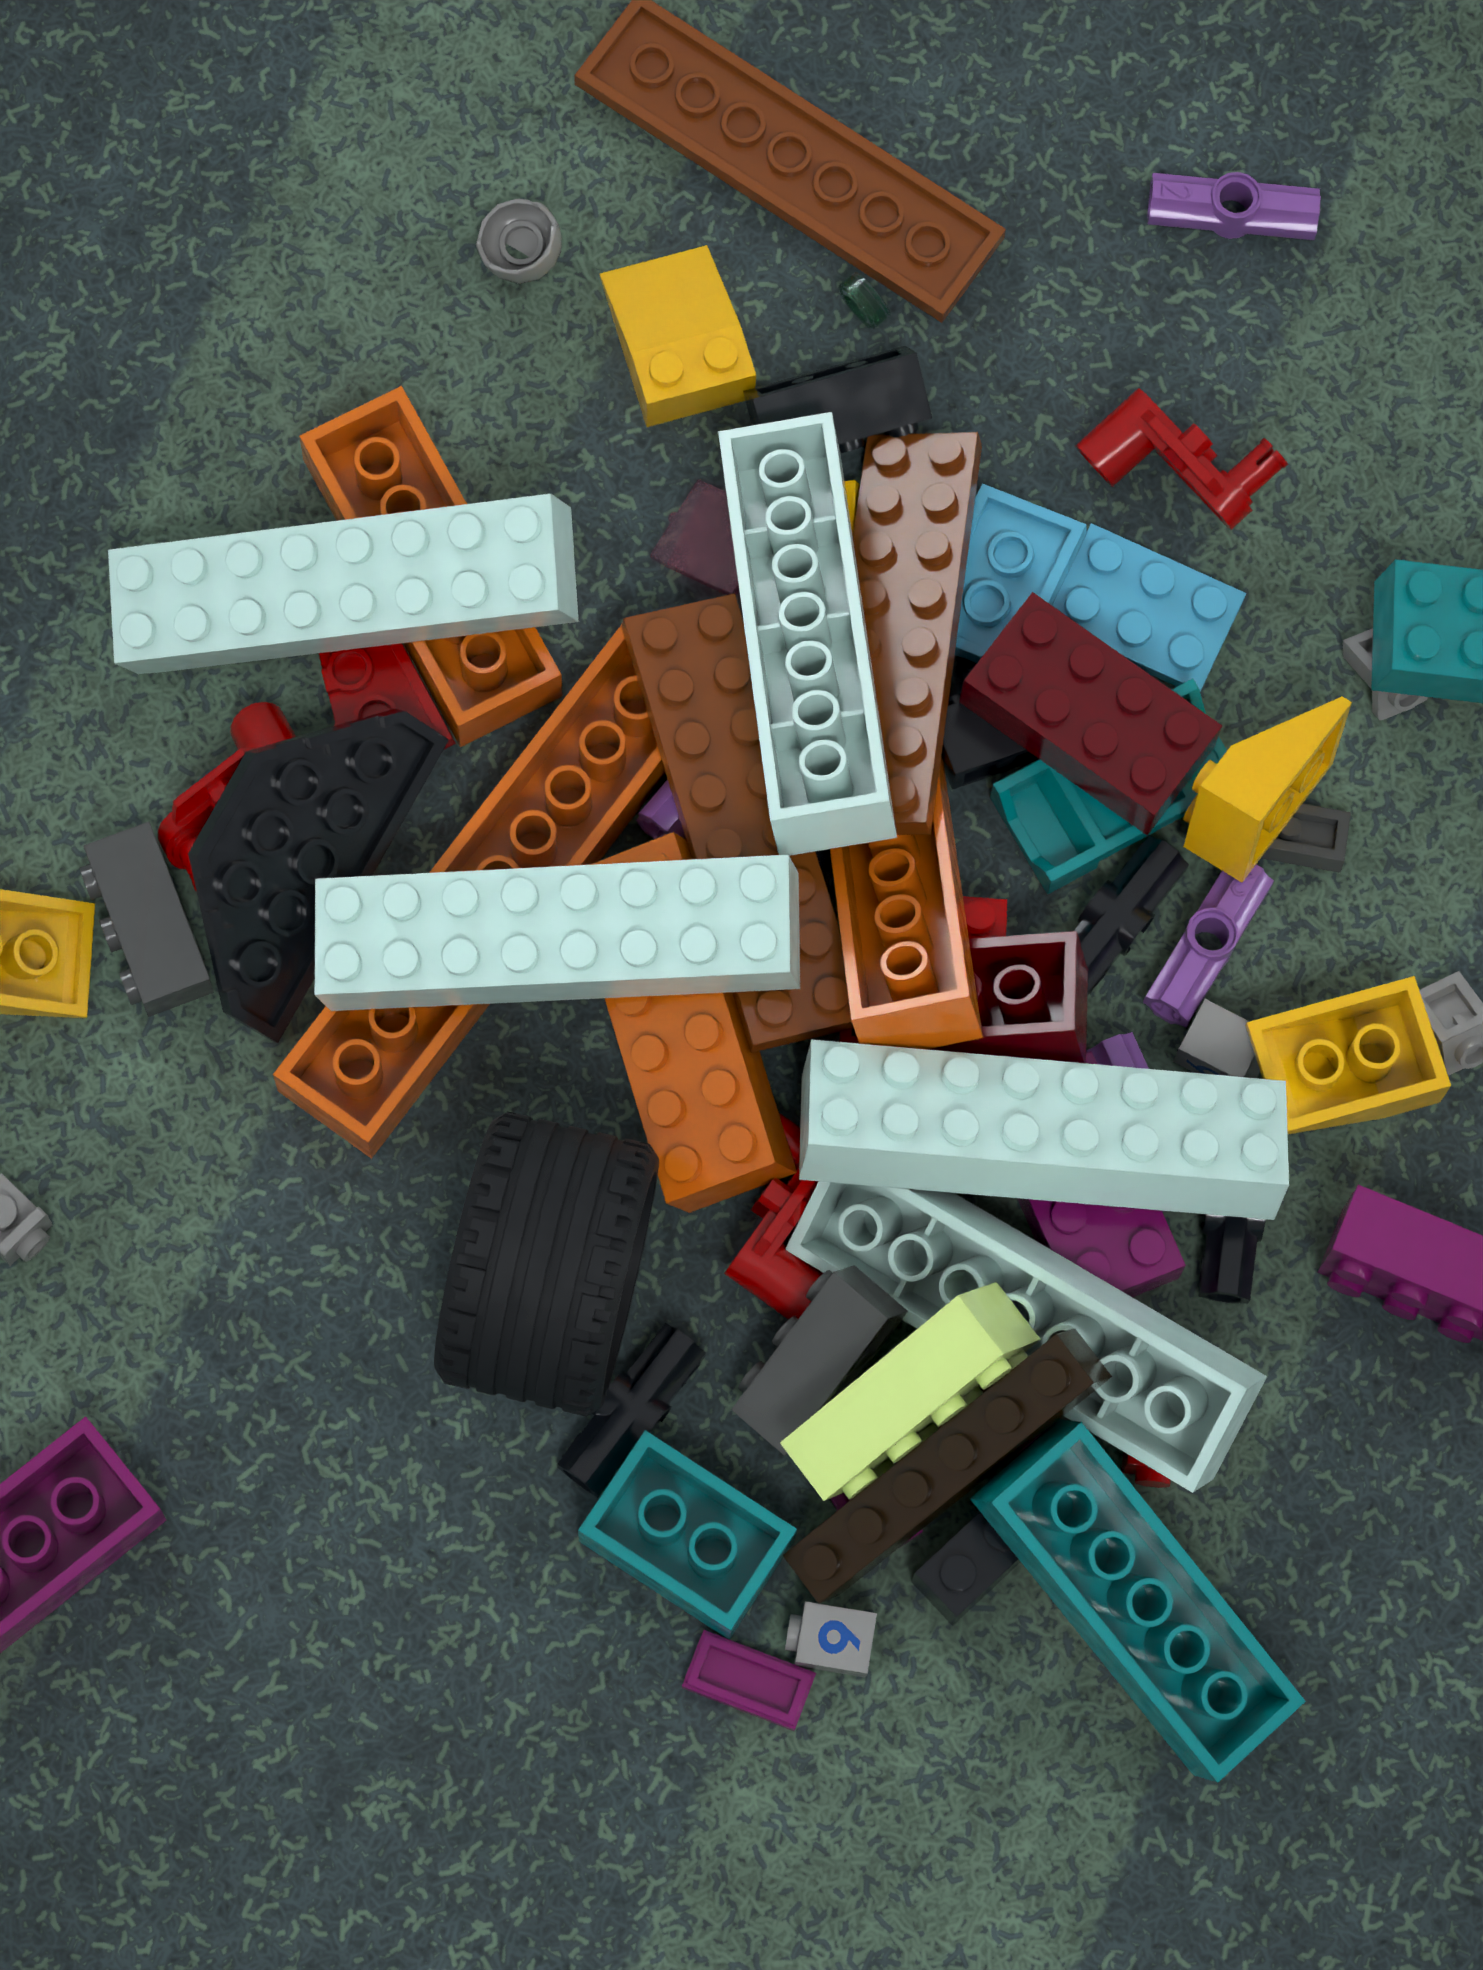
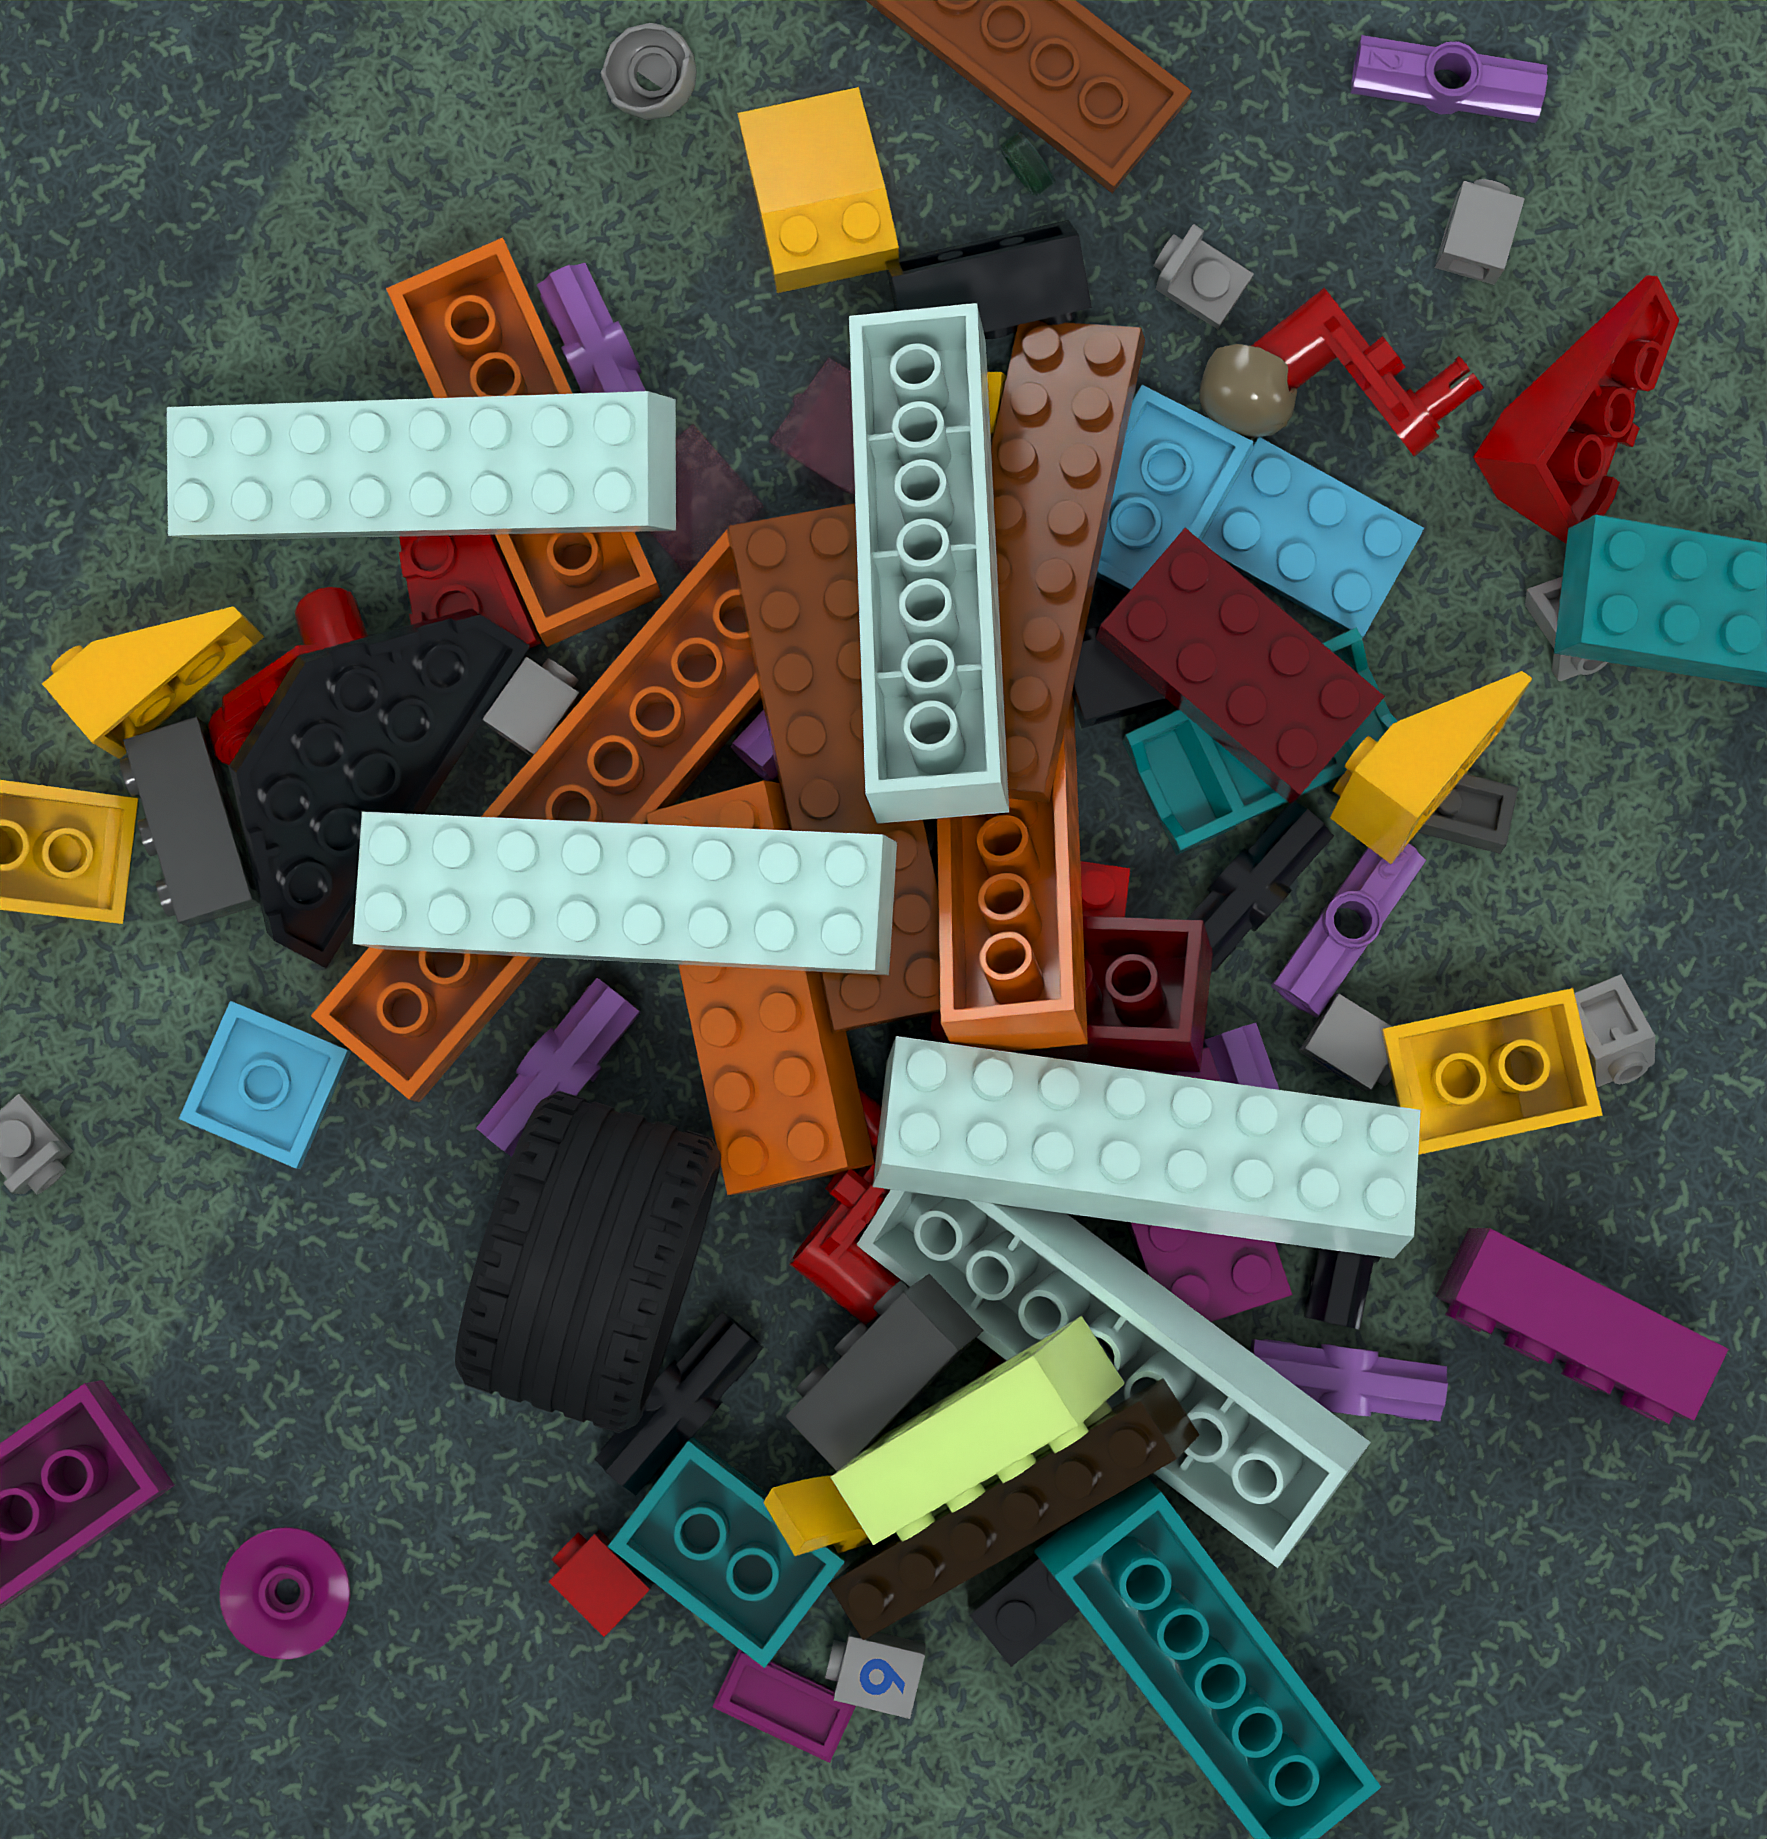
camera: 10 degrees right, 10 degrees up
(103, 784) = (146, 675): none -> yellow slope
(229, 1150) = (265, 1085): none -> medium azure plate
(272, 1575) = (251, 1597): none -> magenta dish
(452, 795) = (533, 704): none -> light grey brick
(476, 460) = (592, 342): none -> medium lavender piece
(517, 1089) = (560, 1061): none -> medium lavender piece
(569, 1574) = (598, 1581): none -> red brick
(601, 611) = (706, 500): none -> clear pink piece
(773, 1489) = (814, 1516): none -> yellow slope
(1026, 389) = (1200, 277): none -> light grey bracket
(1077, 481) = (1247, 391): none -> dark tan hair
(1267, 1346) = (1359, 1379): none -> medium lavender piece
(1273, 334) = (1480, 231): none -> light grey brick
(1364, 499) = (1562, 431): none -> red wedge

